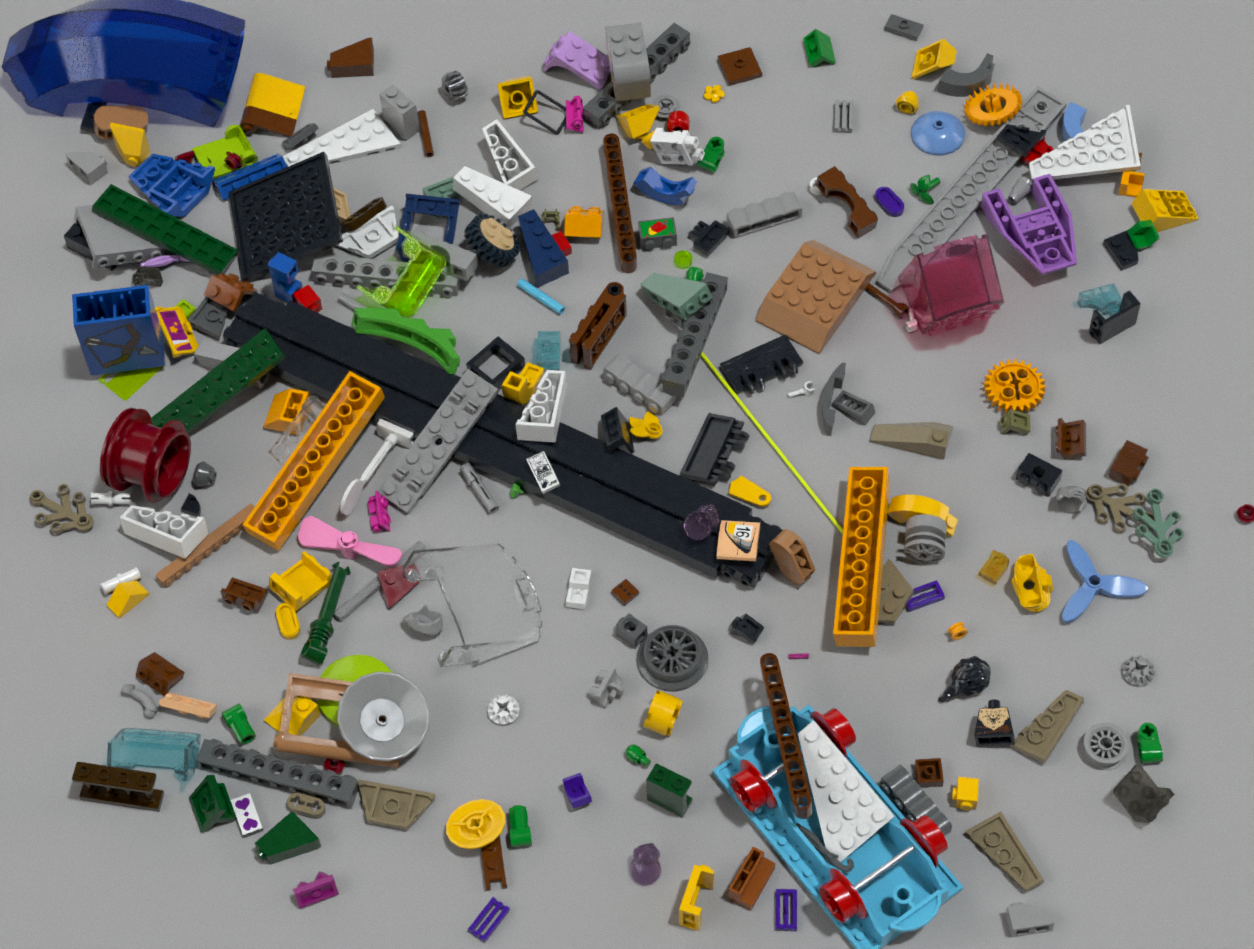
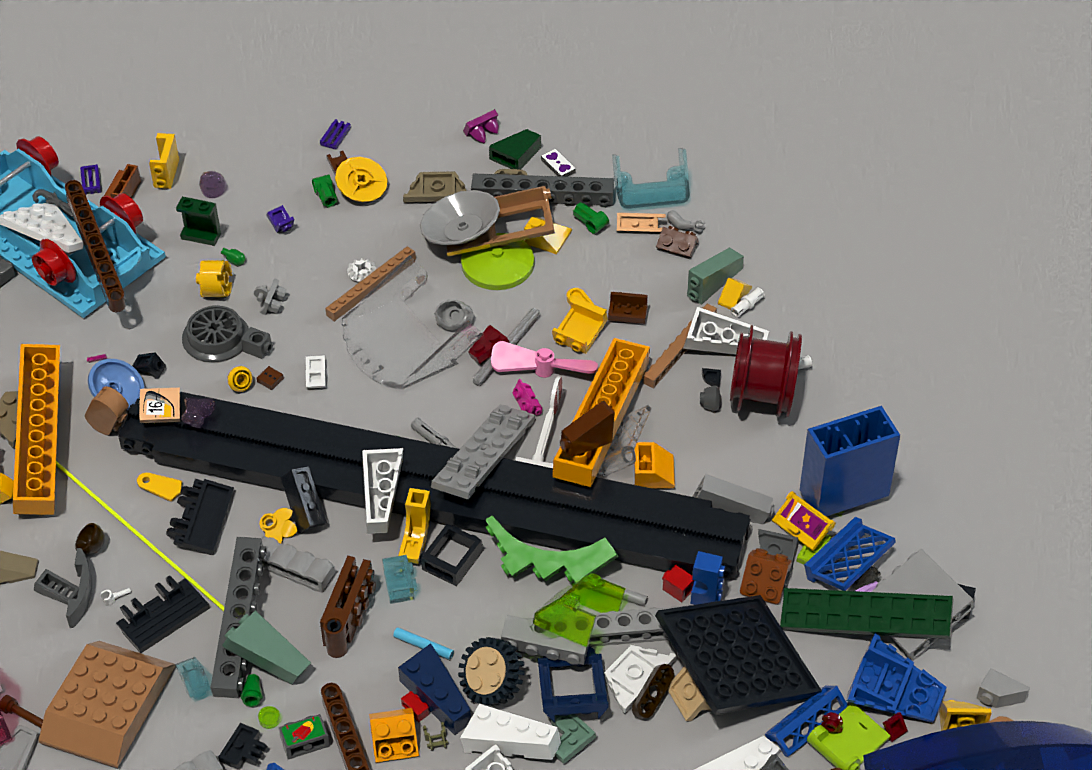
camera: 165 degrees right, 10 degrees down
(63, 512) = (813, 344): dark tan plant -> none
(118, 786) = (663, 159): dark brown fence -> none
(140, 613) = (712, 274): none -> sand green slope
(172, 297) = (839, 547): none -> blue fence
(211, 804) = (586, 159): dark green bracket -> none
(222, 383) = (728, 457): dark green plate -> none
(321, 628) = (545, 294): dark green piece -> none
(341, 396) = (589, 430): none -> reddish brown slope
(497, 687) = (360, 290): none -> medium nougat piece
(543, 472) = (368, 436): white tile -> none
(656, 590) = (240, 378): none -> yellow cone
(742, 299) = (193, 677): none -> clear light blue arch
(780, 598) = (117, 375): none -> medium blue dish
(820, 440) = (90, 539): none -> dark brown piece

